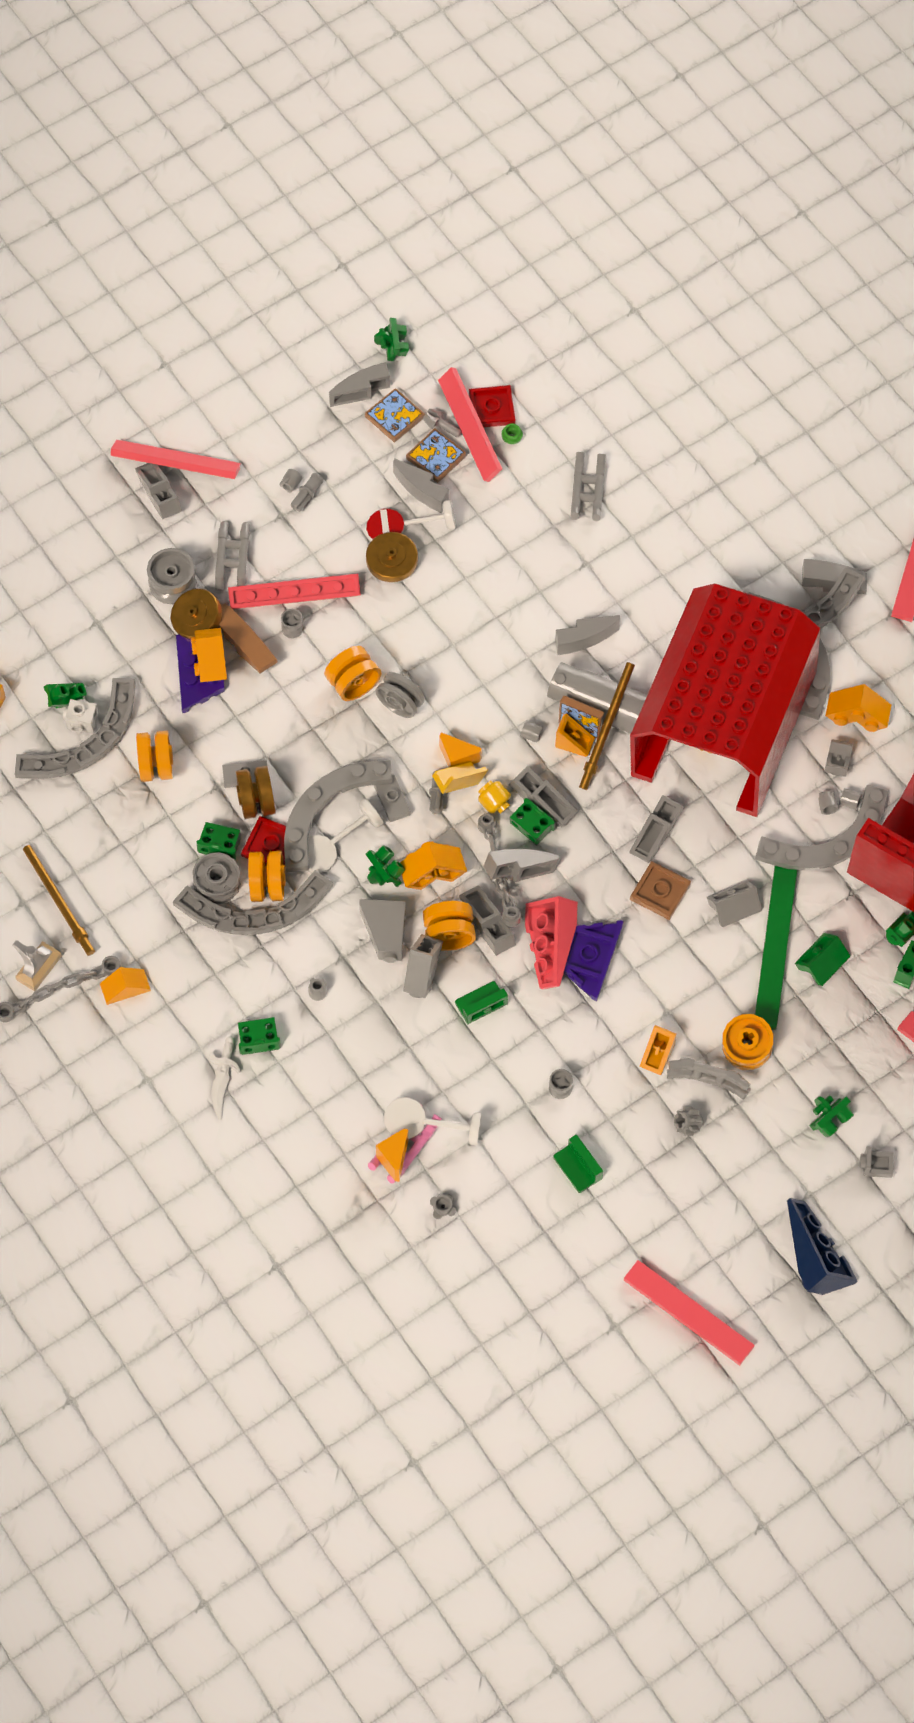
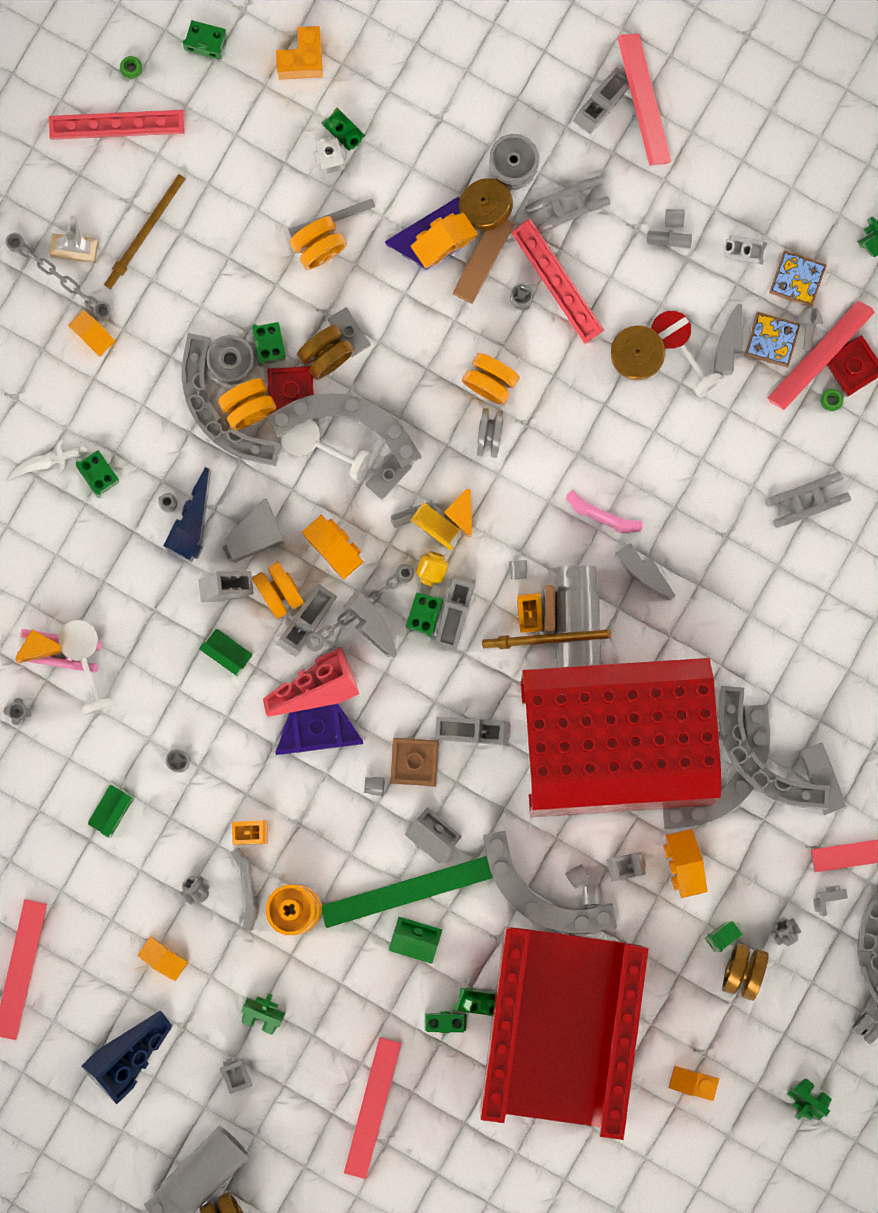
camera: 65 degrees right, 20 degrees up
(90, 750) = (309, 184): light grey plate -> none
(133, 757) = (338, 215): none -> light grey bar
(349, 437) = (745, 249): none -> light grey hips
(351, 978) = (187, 533): none -> dark blue wedge
(360, 384) = (812, 230): light grey slope -> none
(381, 870) = (308, 504): green hips -> none
(518, 644) = (619, 524): none -> bright pink piece
(666, 930) = (374, 786): none -> light grey hose
(737, 1181) = (162, 959): none -> light orange slope

